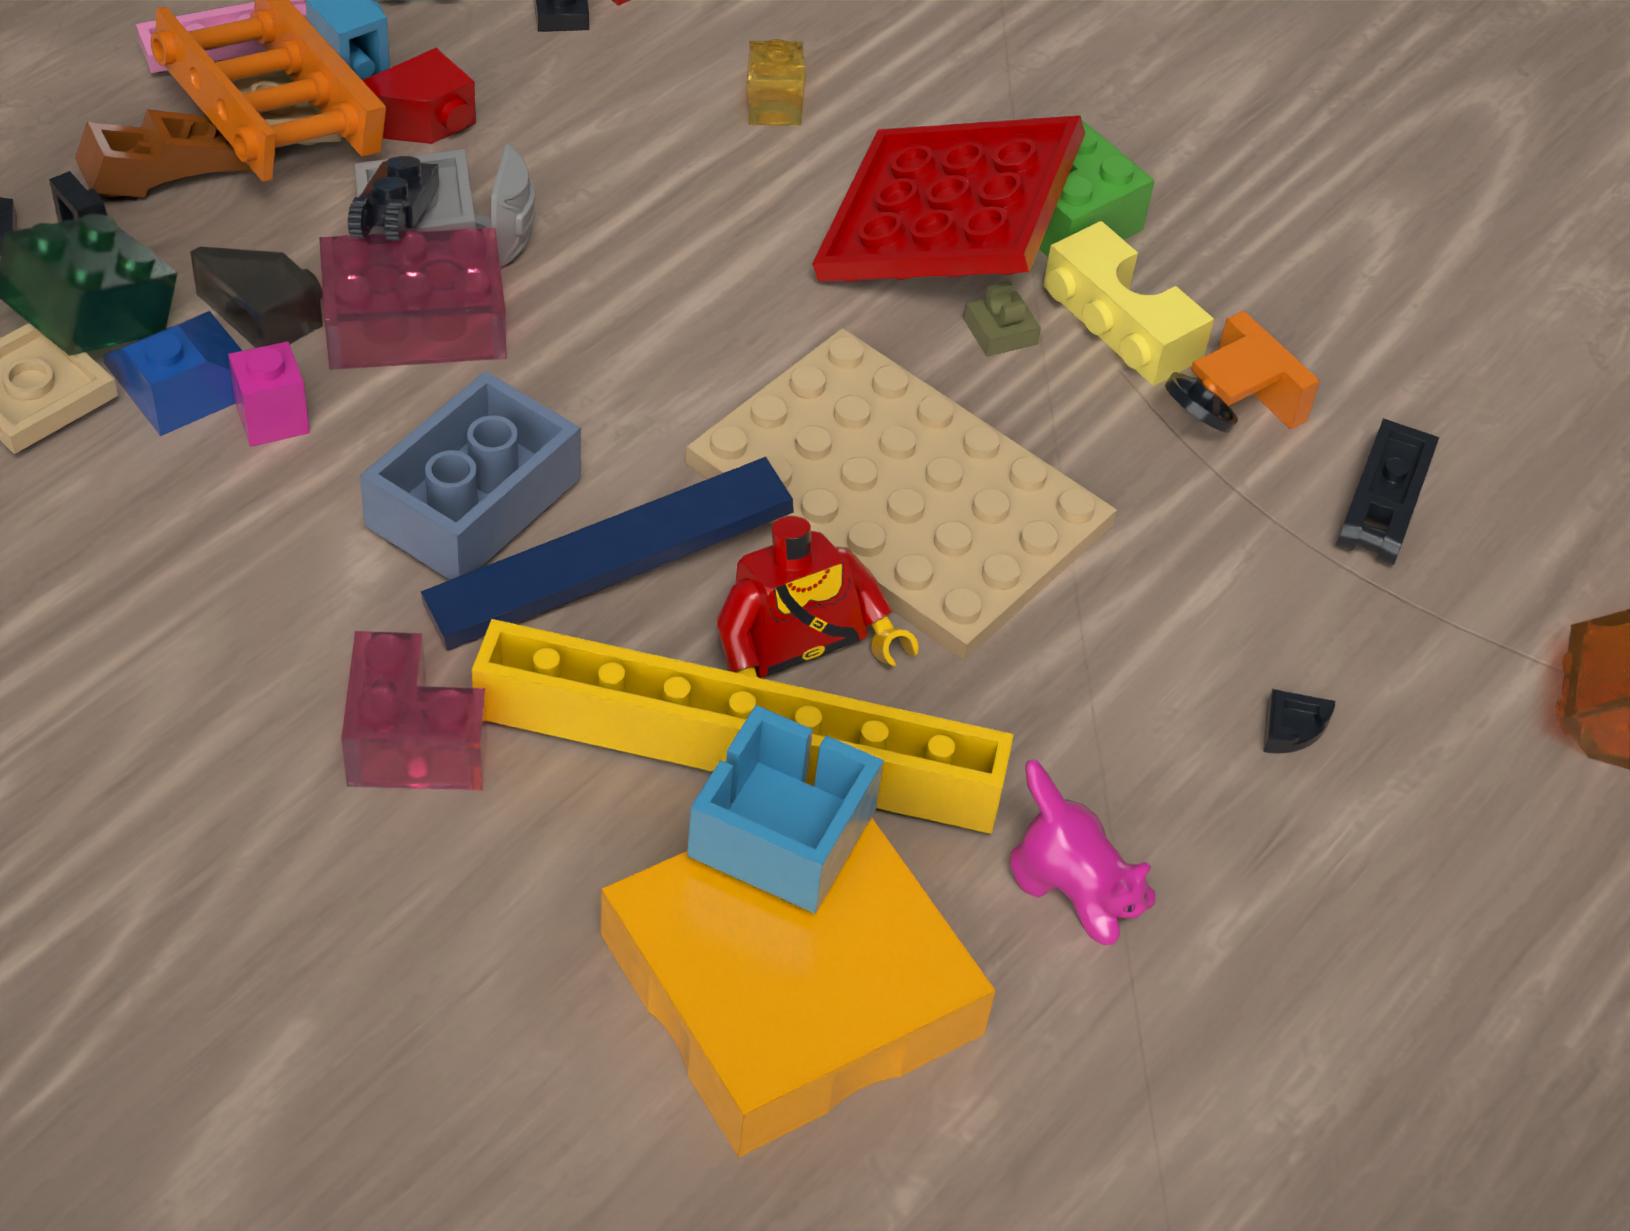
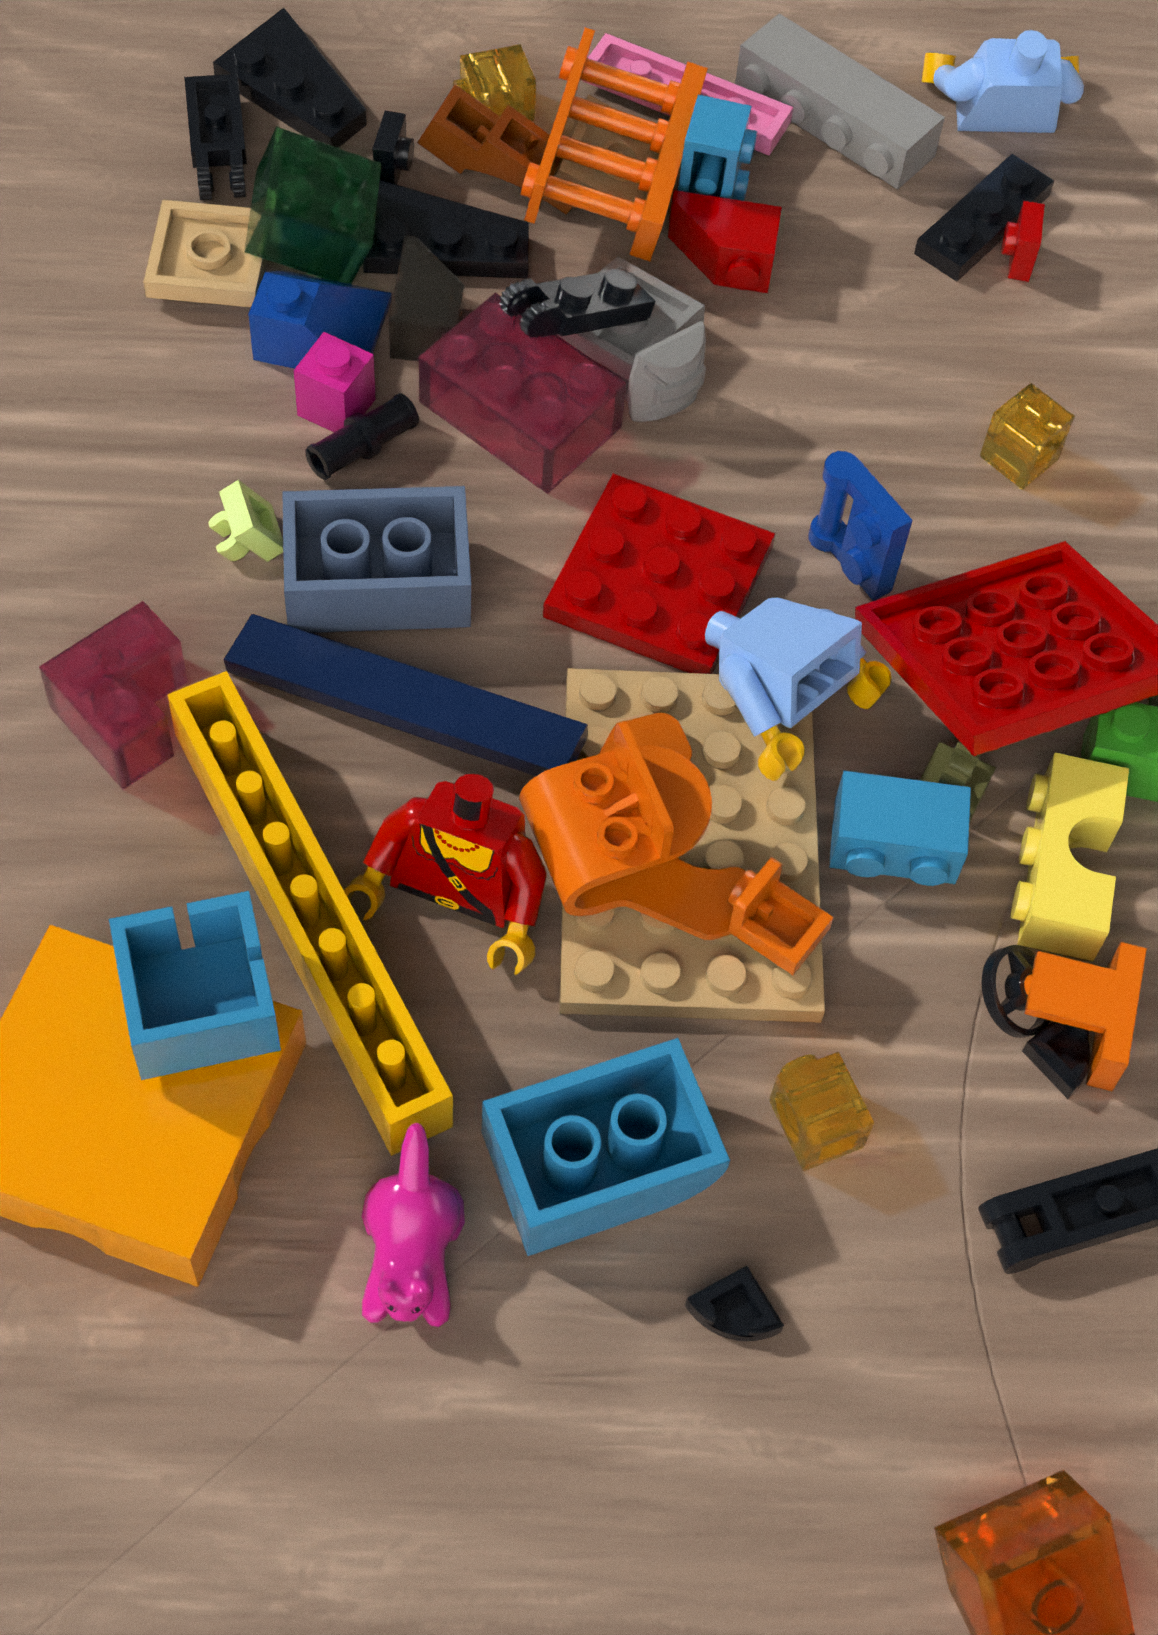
camera: 50 degrees right, 10 degrees up
(98, 99) = (499, 79): none -> clear yellow brick
(233, 222) = (459, 235): none -> black wing
(332, 416) = (362, 436): none -> black pin
(332, 532) = (249, 522): none -> yellowish green tile
(657, 347) = (656, 574): none -> red plate
(780, 204) = (876, 529): none -> blue plate
(839, 318) = (786, 664): none -> light blue torso
(881, 485) = (621, 823): none -> orange piece
(1020, 365) = (900, 828): none -> dark azure brick
(1037, 469) = (776, 918): none -> orange bracket
(1118, 693) = (602, 1145): none -> dark azure brick
(1192, 563) = (820, 1109): none -> clear yellow brick
(1262, 422) = (1061, 1055): none -> black tile

